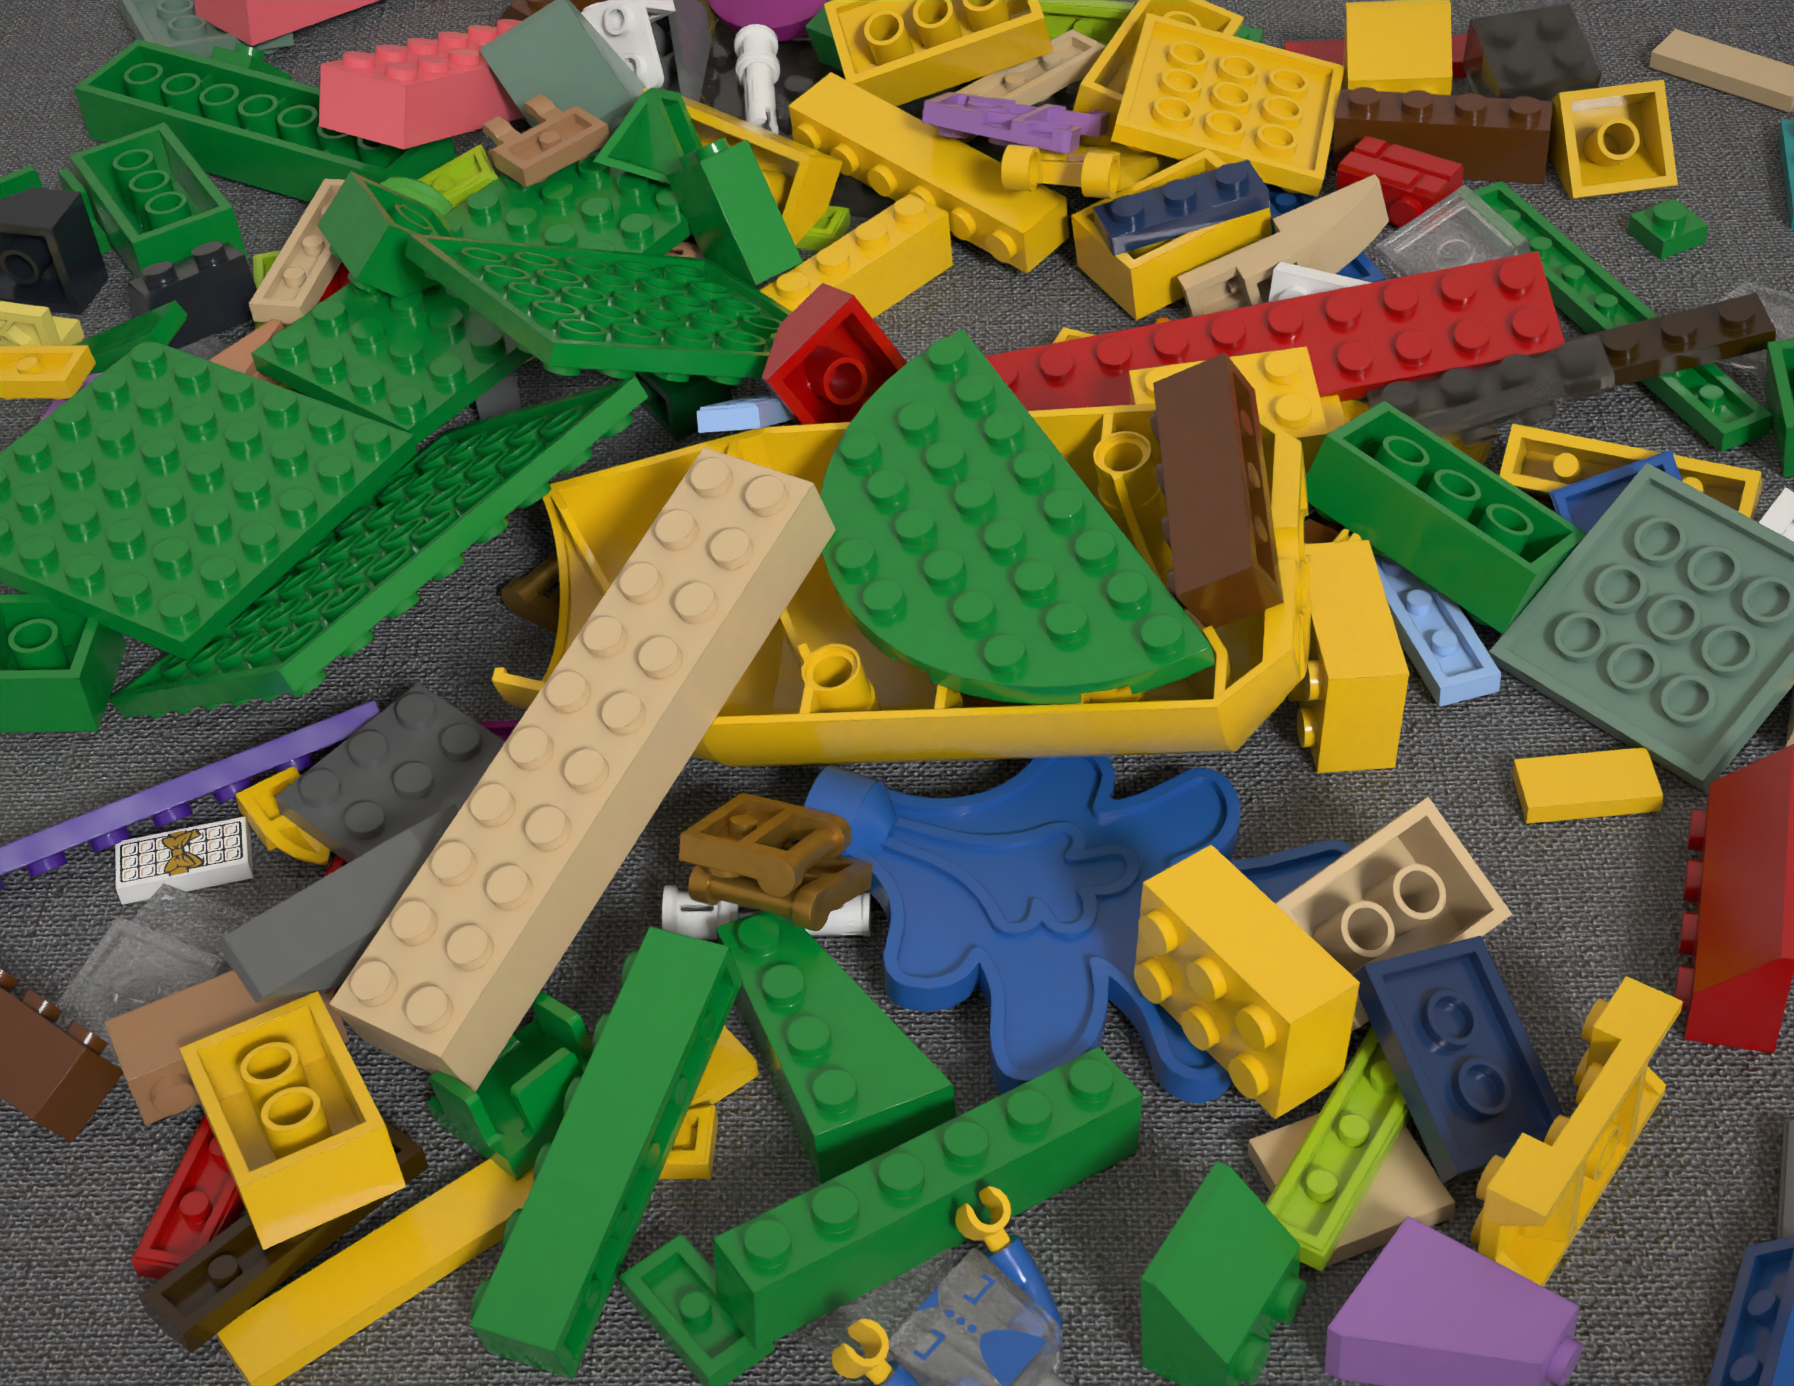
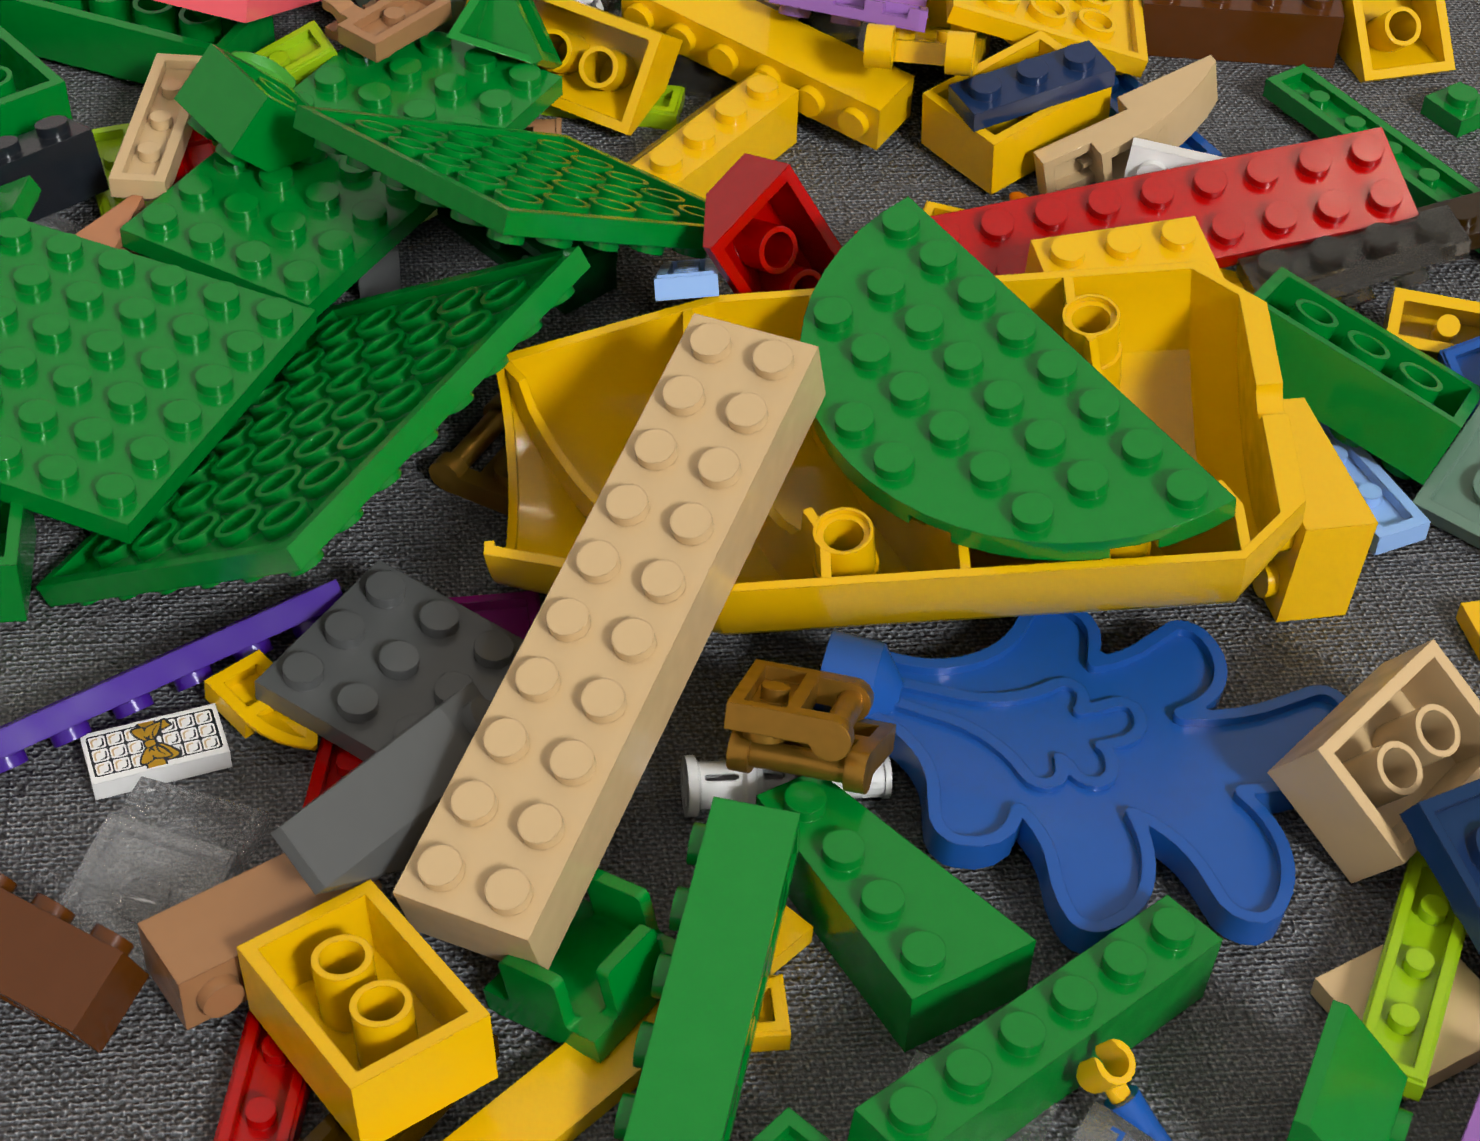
camera: 15 degrees left, 0 degrees up
(733, 211) = (596, 86): green brick -> none
(1215, 493) = (1206, 352): reddish brown brick -> none
(1244, 981) = (1301, 822): yellow brick -> none
(1407, 177) = (1239, 63): red brick -> none
(1451, 235) = (1273, 115): clear tile -> none

